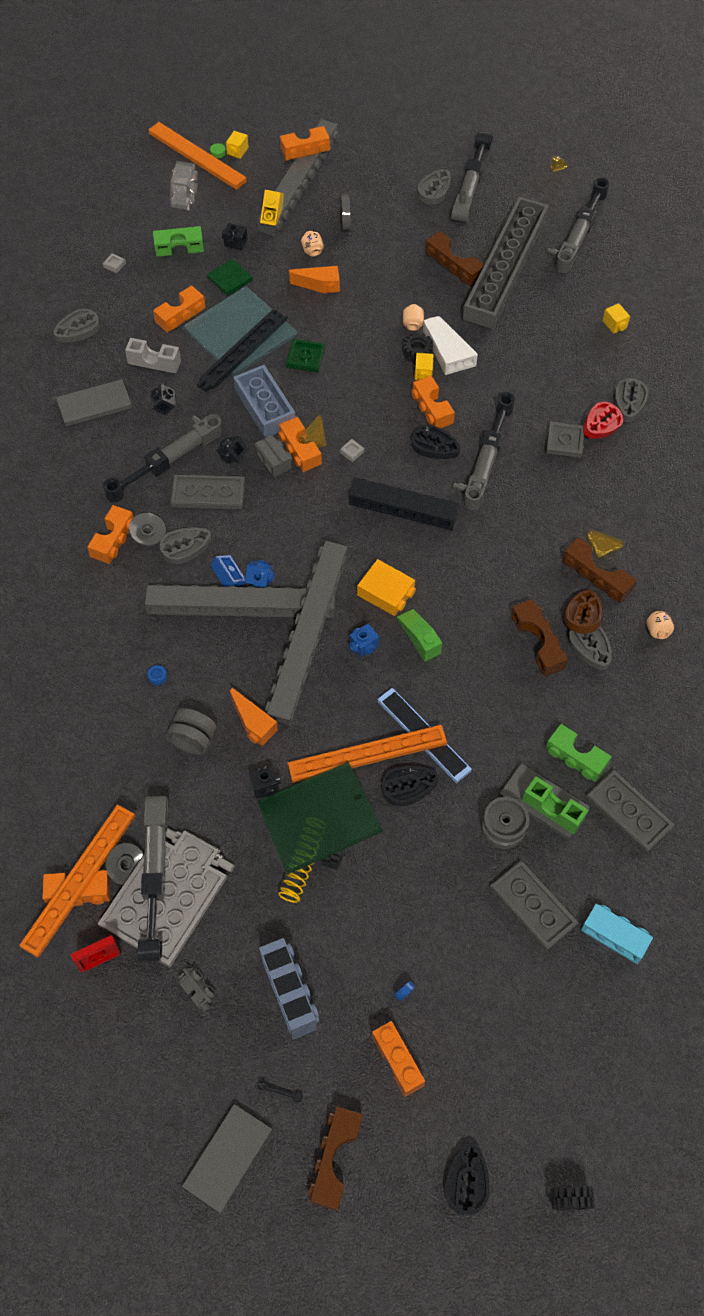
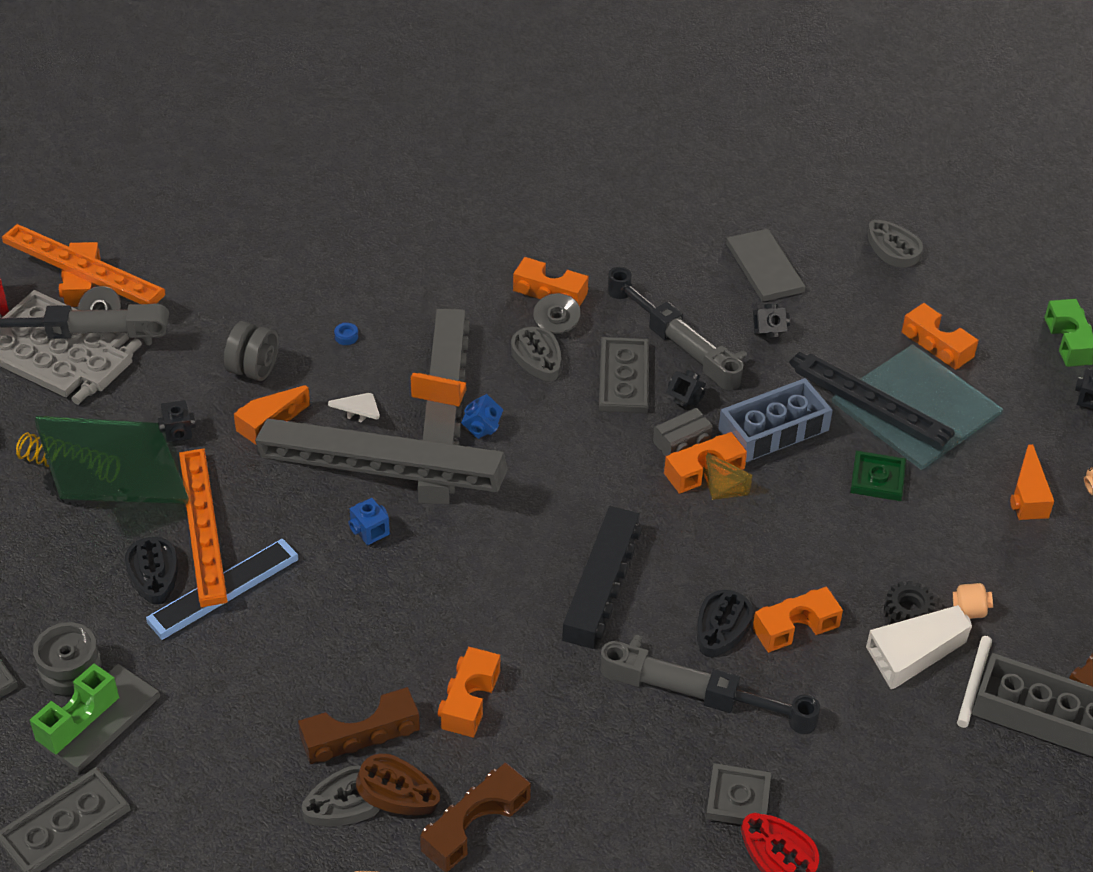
camera: 90 degrees right, 15 degrees down
(114, 263) = (1018, 274): light grey tile -> none
(141, 355) = (844, 308): light grey arch -> none
(227, 571) = (501, 392): blue slope -> none
(229, 277) = (1017, 391): dark green tile -> none
(239, 596) = (437, 389): none -> orange panel
(244, 656) = (359, 404): none -> white piece
(352, 450) = (703, 525): light grey tile -> none
(386, 587) = (456, 551): light orange brick -> none
(421, 634) = (377, 586): bright green slope -> none
(424, 365) = (868, 610): yellow brick -> none
(469, 325) = (974, 682): none -> white bar
(517, 582) = (475, 672): none -> orange arch
(589, 764) = (177, 741): bright green arch -> none
(603, 543) = (535, 833): clear yellow slope -> none

